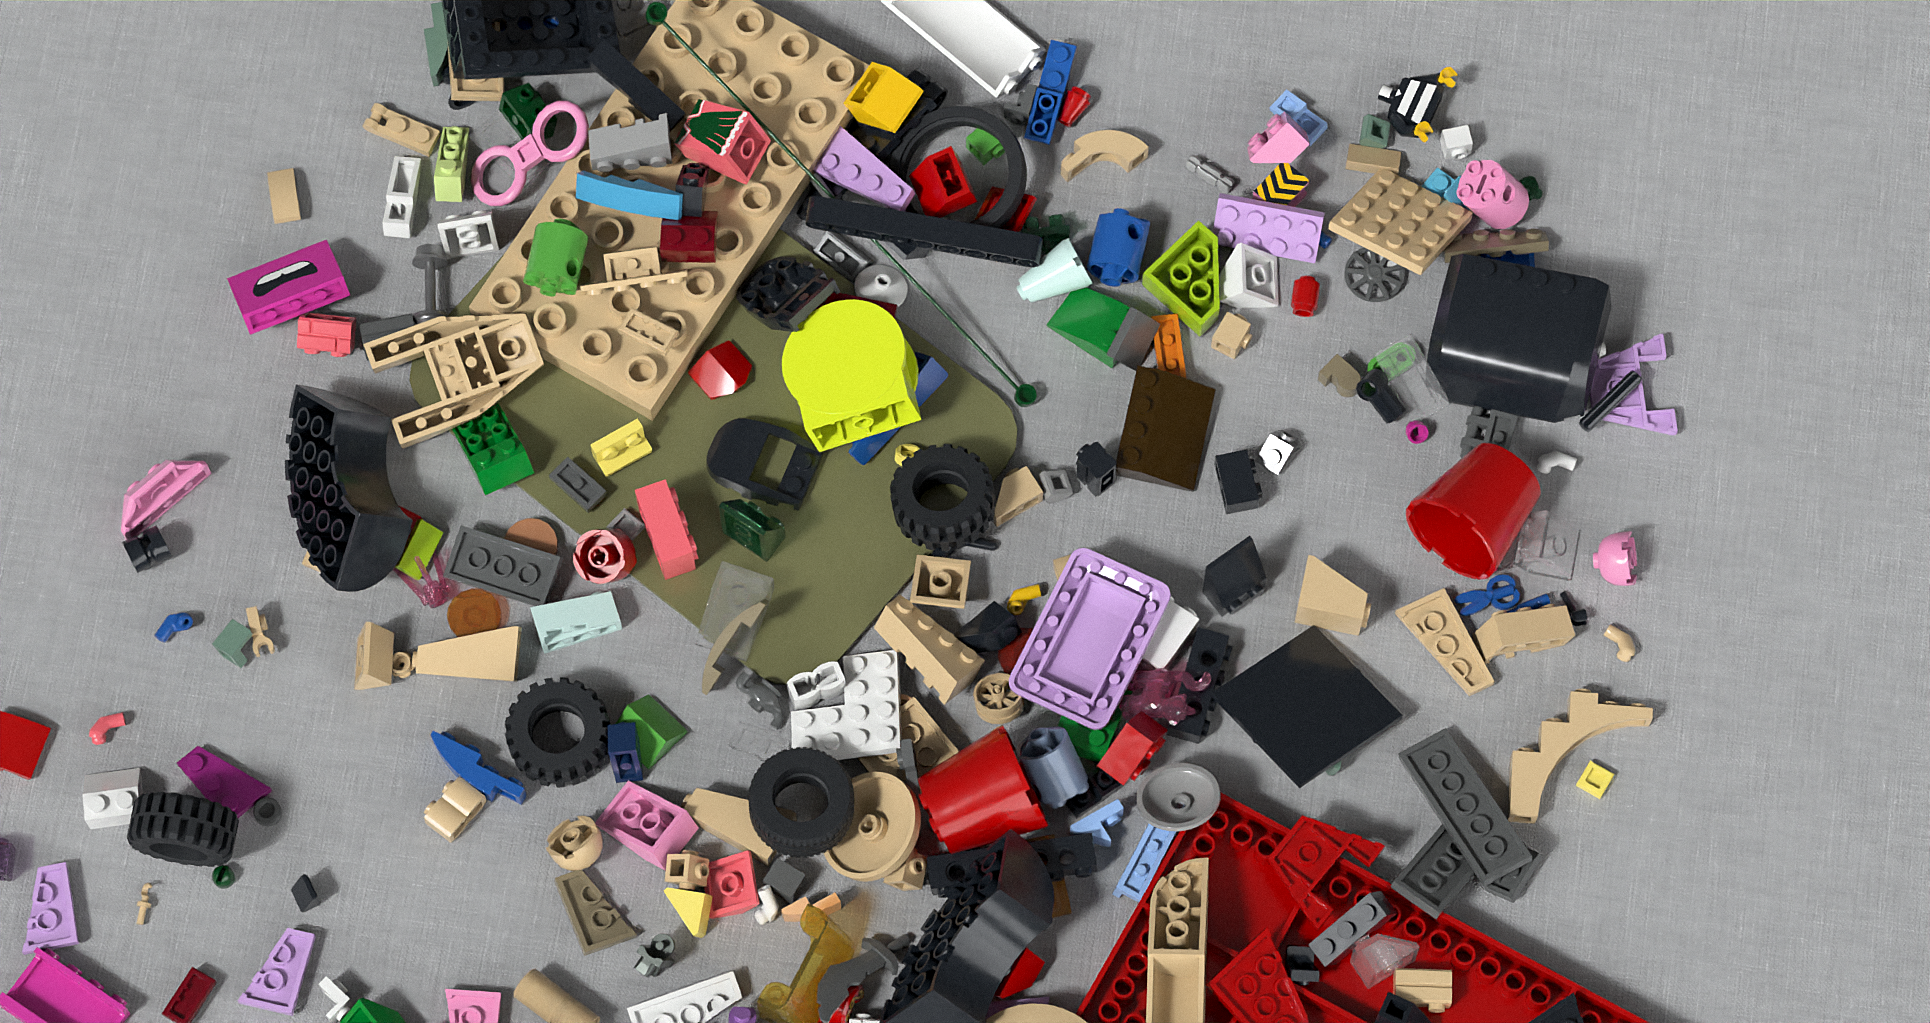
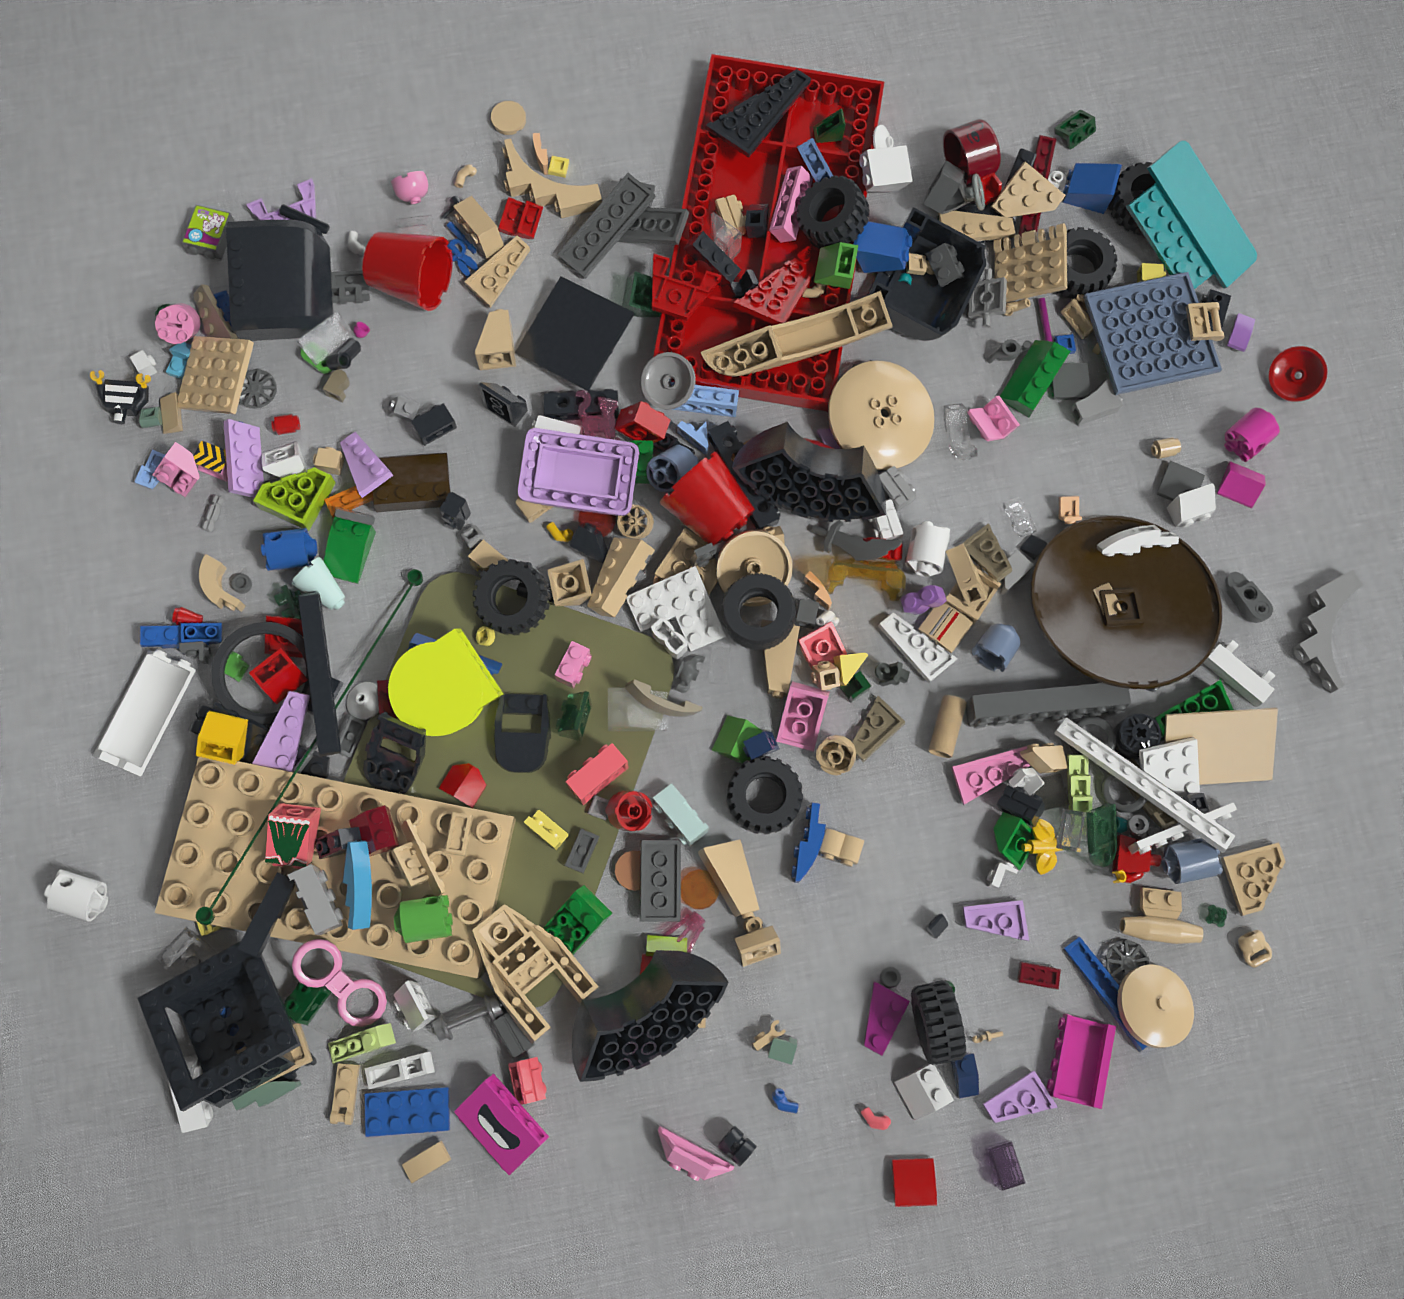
camera: 115 degrees left, 5 degrees up
(110, 855) = (966, 1076): none -> dark blue slope
(350, 192) = (407, 1112): none -> blue plate
(658, 910) = (856, 687): none -> dark green panel
(825, 549) = (572, 665): none -> bright pink brick
(1098, 184) = (241, 583): none -> dark grey tile
(1200, 373) = (364, 465): none -> lavender wing
(1341, 813) = (639, 295): none -> clear green slope
(1524, 698) = (520, 218): none -> red slope
(1611, 756) = (541, 154): none -> light nougat slope
(1634, 273) = (207, 232): none -> brick
(1699, 734) = (508, 117): none -> tan tile

